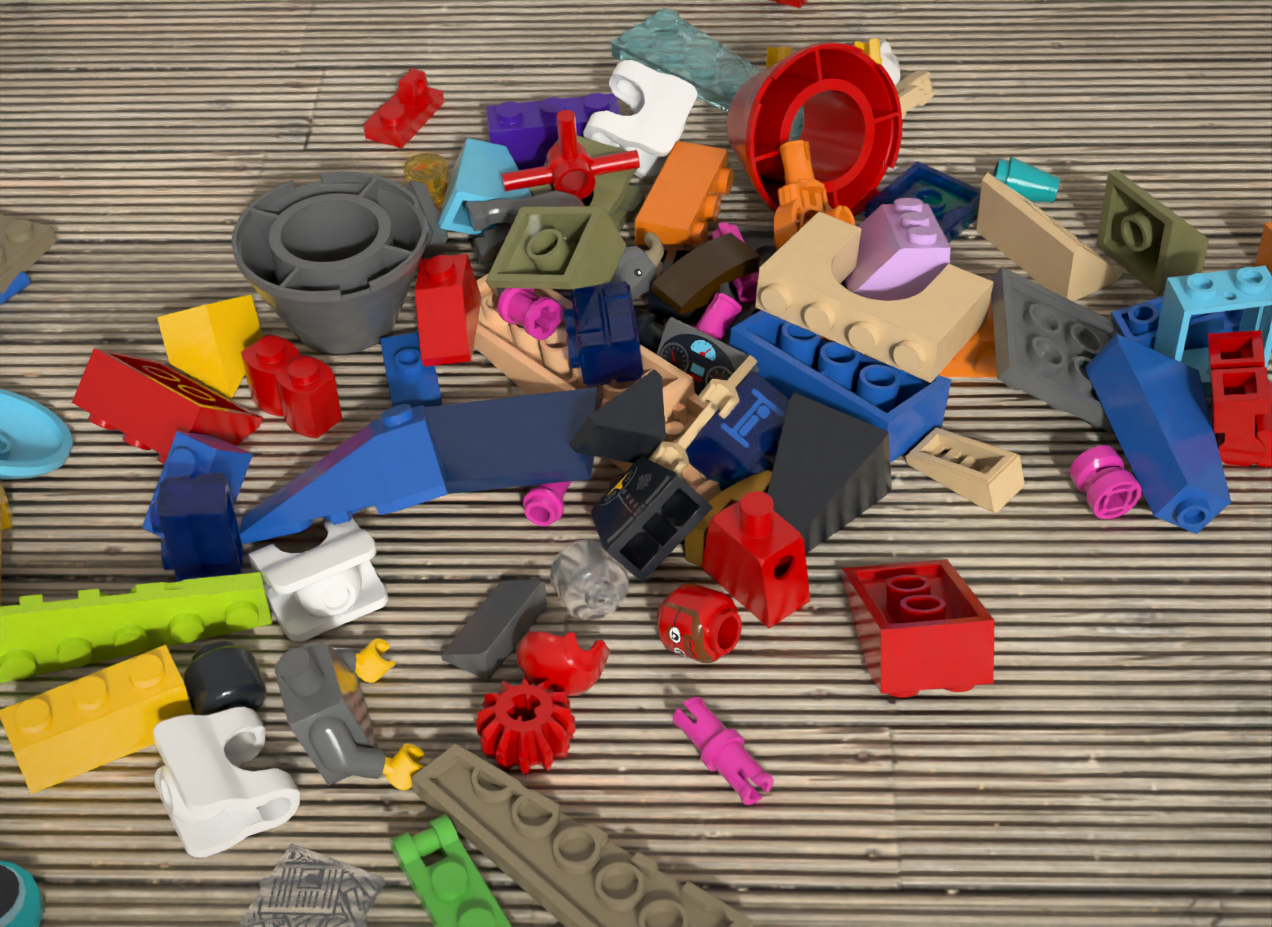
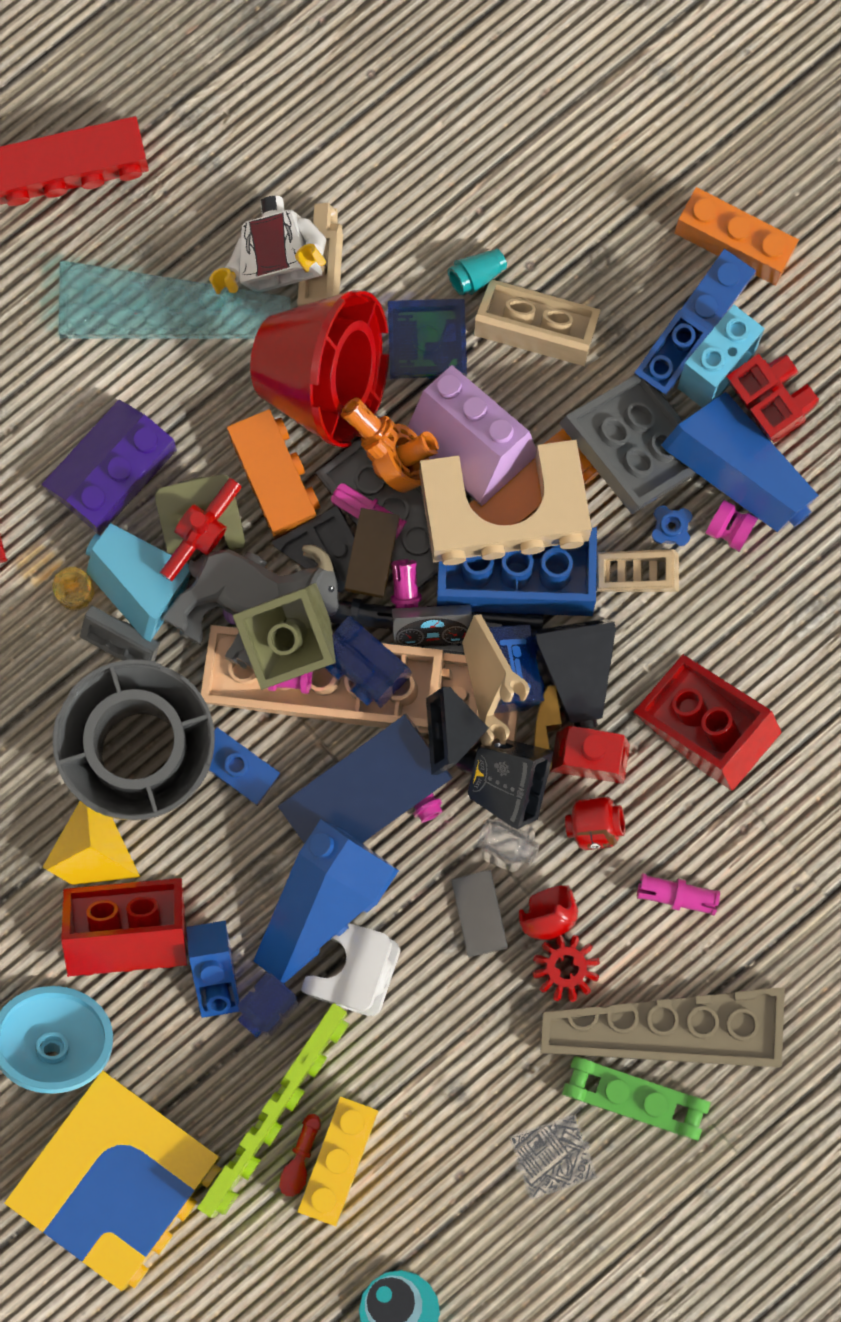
camera: 45 degrees left, 35 degrees up
(205, 790) = (436, 1151): white piece -> none
(224, 679) = (381, 1082): black head -> none
(292, 386) = (174, 848): red brick -> none
(331, 716) = (462, 1052): dark grey torso -> none
(447, 309) = (237, 716): red slope -> none
(659, 117) = (200, 425): white piece -> none
(1039, 452) = (664, 534): none -> blue plate
(1147, 235) = (608, 275): olive slope -> none

